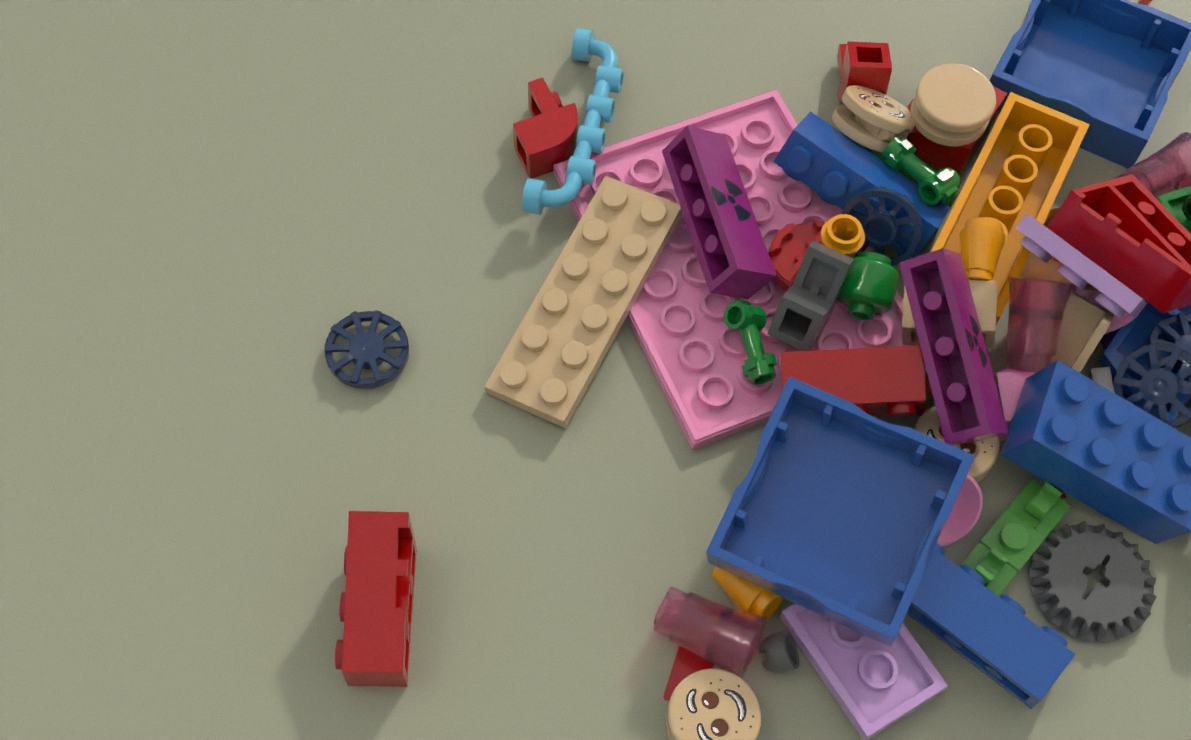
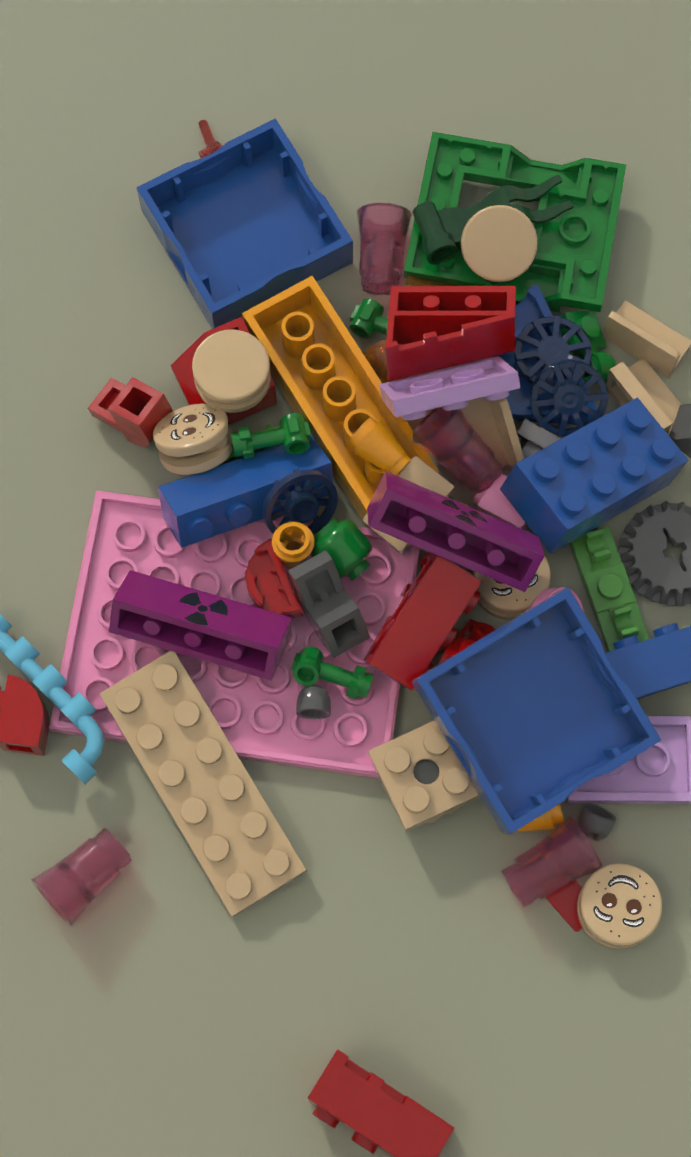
camera: 55 degrees left, 10 degrees up
(366, 349) = (131, 996): dark blue wheel -> none
(444, 251) = (82, 875): none -> clear pink plant
(707, 464) = (422, 776): none -> tan piece
(715, 341) = (313, 703): none -> dark grey hinge

